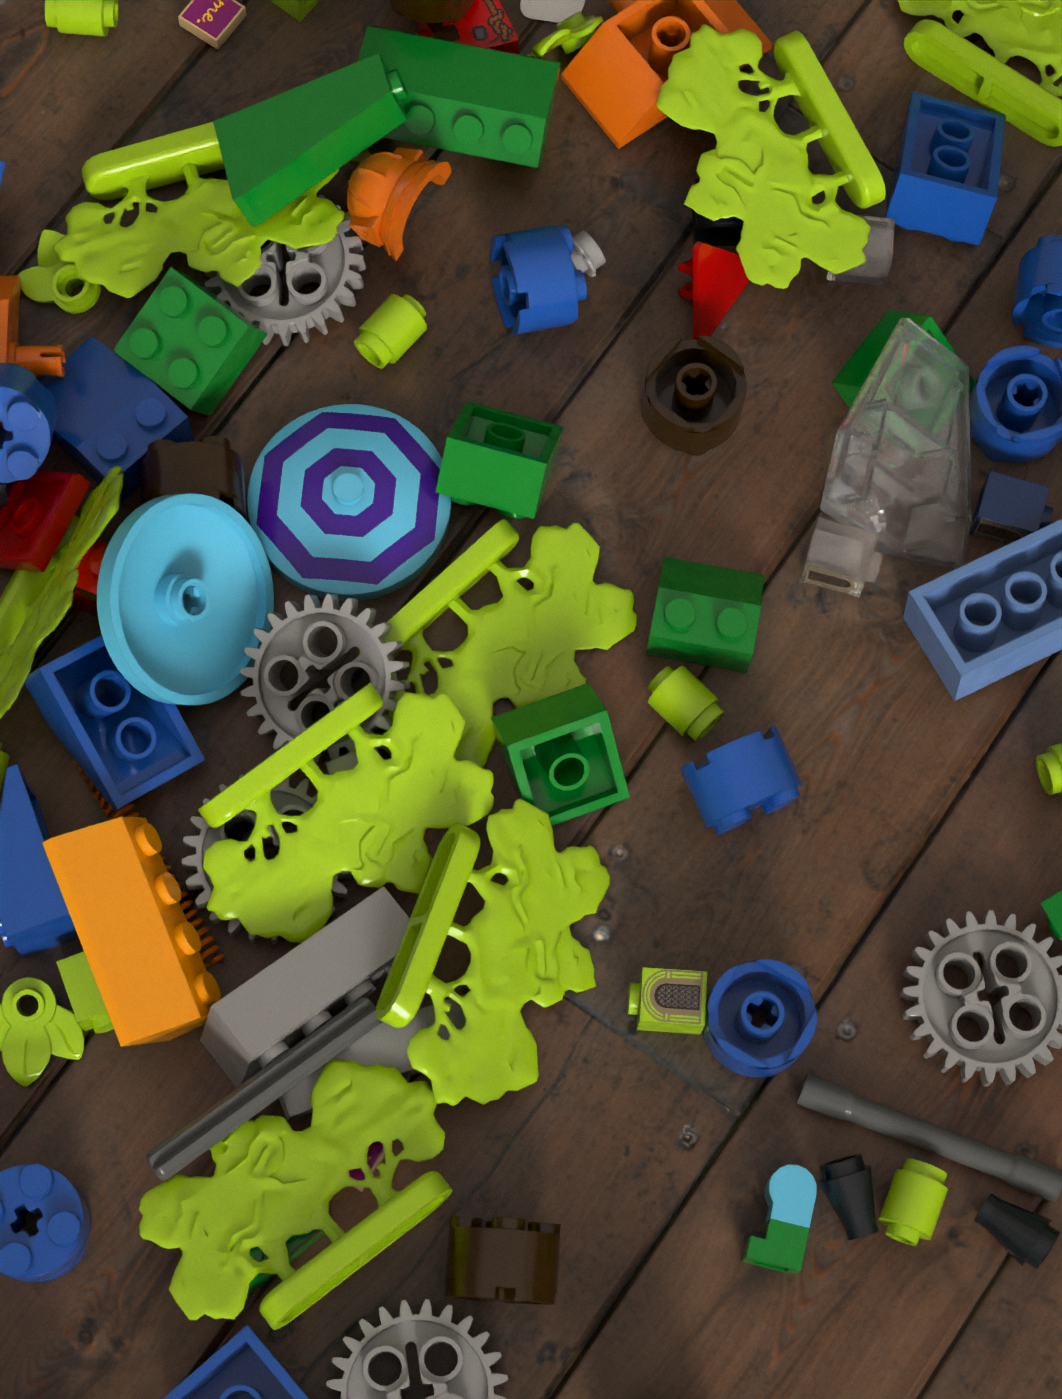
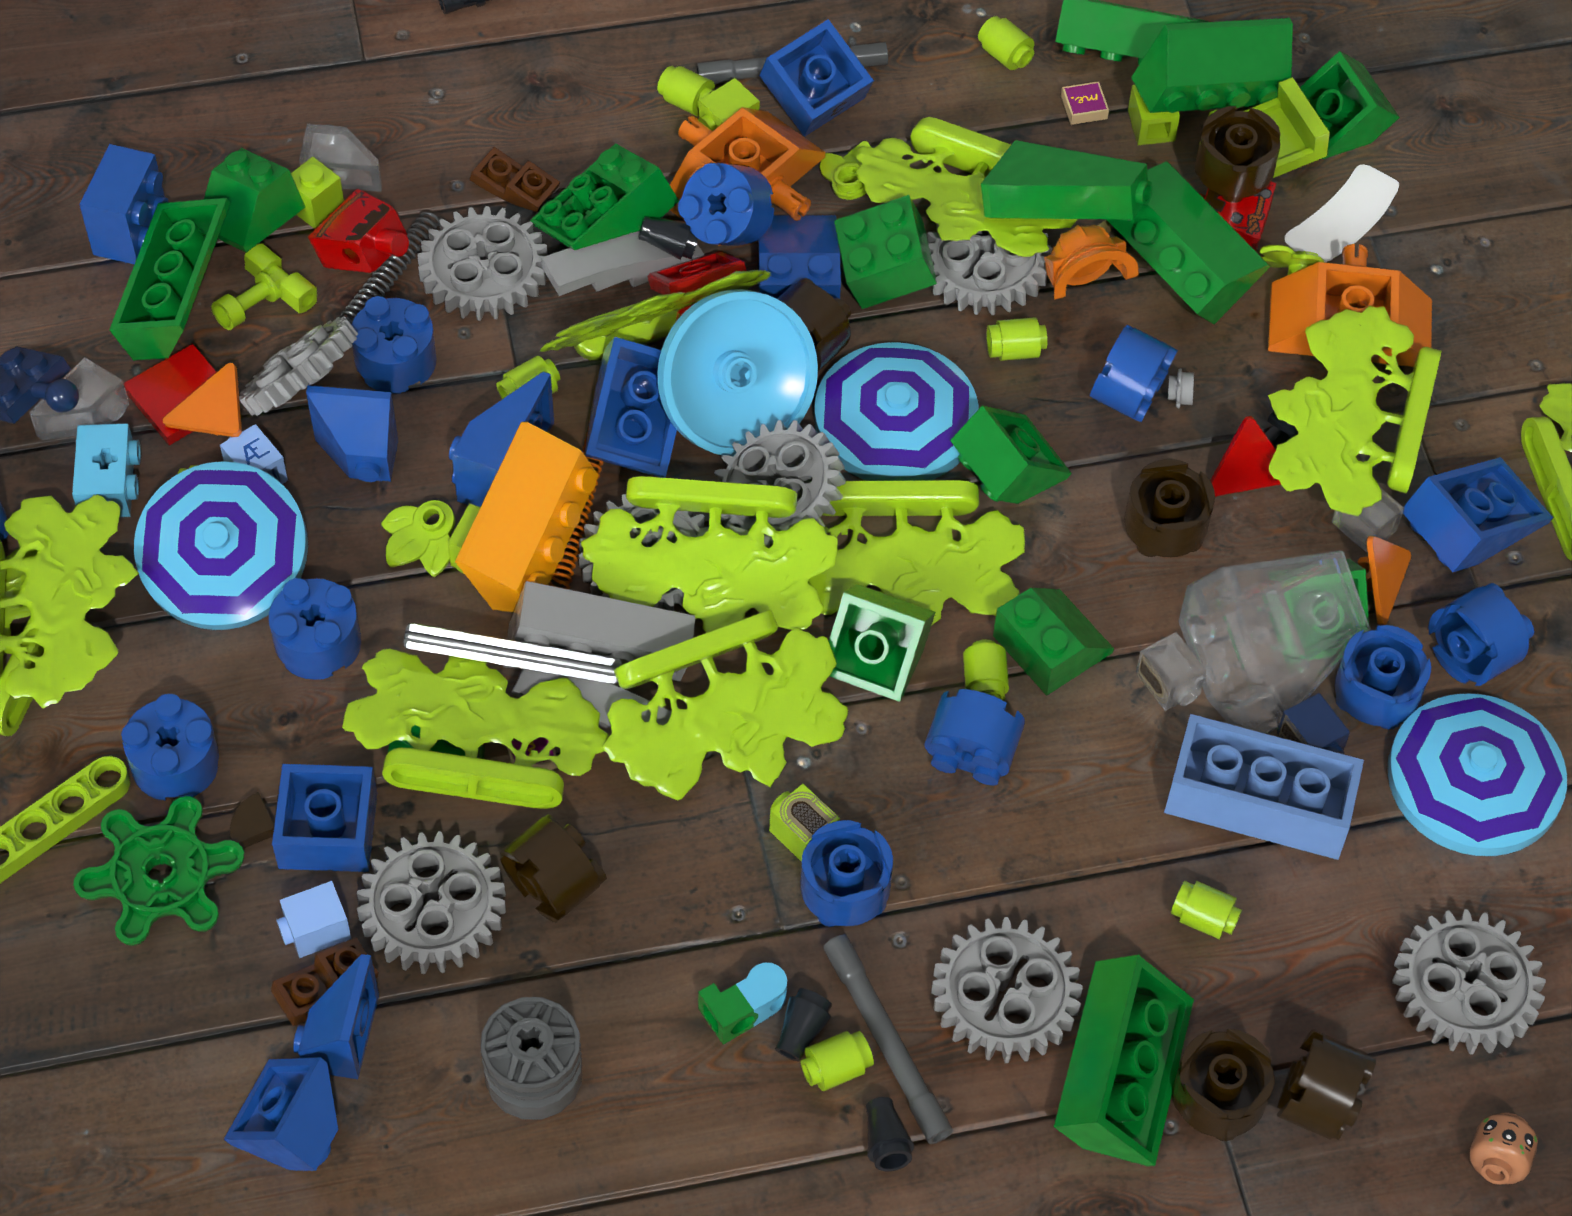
camera: 45 degrees right, 15 degrees down
(926, 299) = (1385, 572): none -> orange piece

